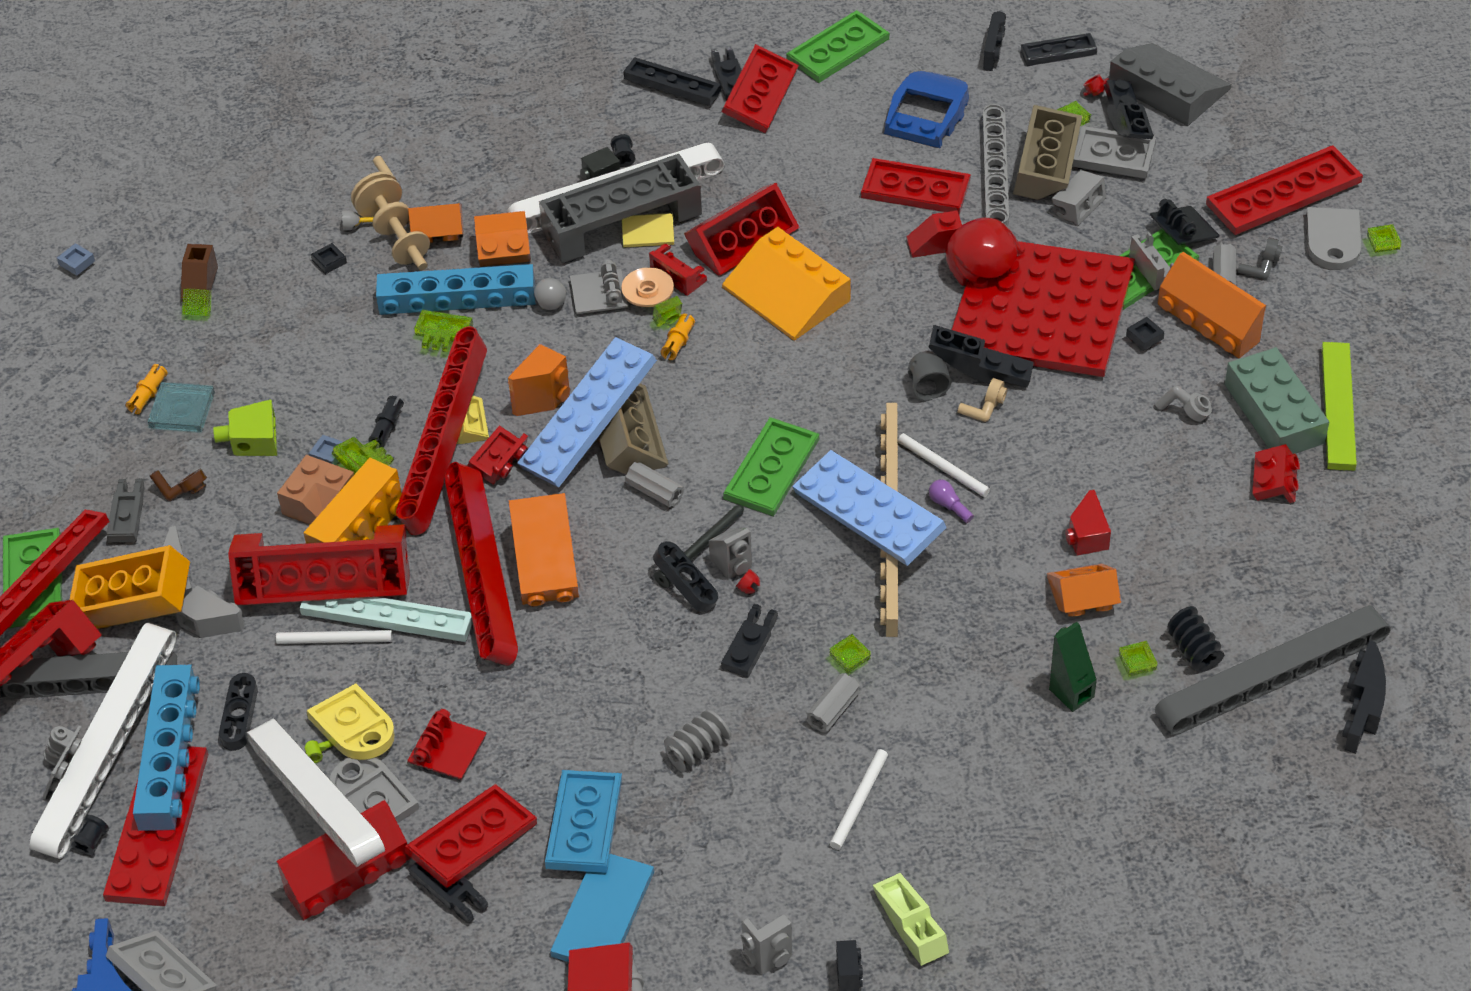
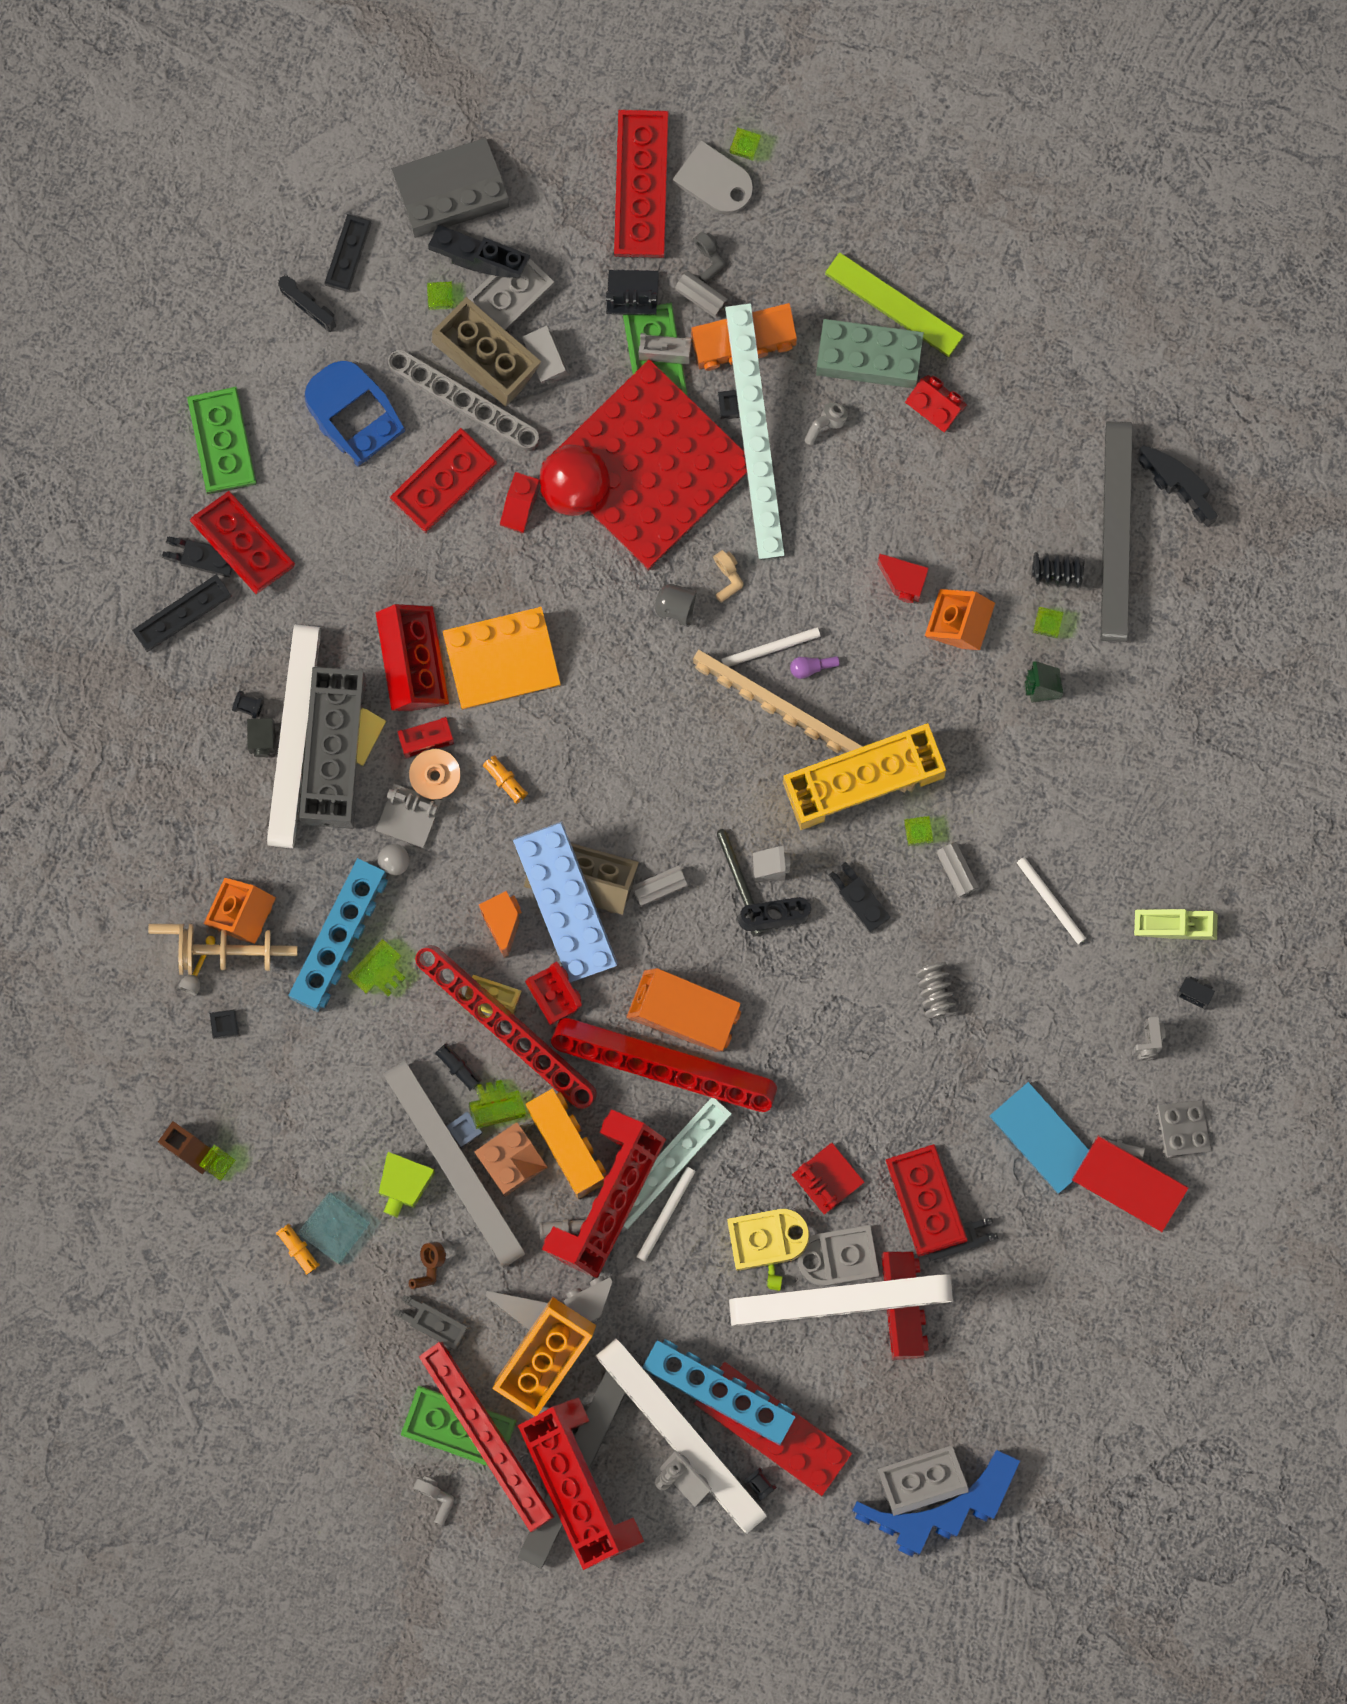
camera: 60 degrees left, 30 degrees up
(75, 259) = (93, 1245): sand blue plate -> none
(243, 721) = (719, 1326): black beam -> none
(260, 491) = (454, 1164): none -> light grey beam
(502, 239) = (306, 866): orange slope -> none
(584, 821) = (959, 1111): dark azure tile -> none
(667, 311) = (474, 773): clear neon green plate -> none
(747, 580) = (802, 868): red hinge -> none
(771, 466) = (690, 782): bright green tile -> none
(869, 507) = (794, 736): light blue plate -> none
(873, 569) = (863, 775): none -> yellow plate
(973, 359) = (689, 553): black slope -> none
(1094, 85) = (419, 254): red plate -> none
(1129, 347) = (754, 431): none -> light aqua plate

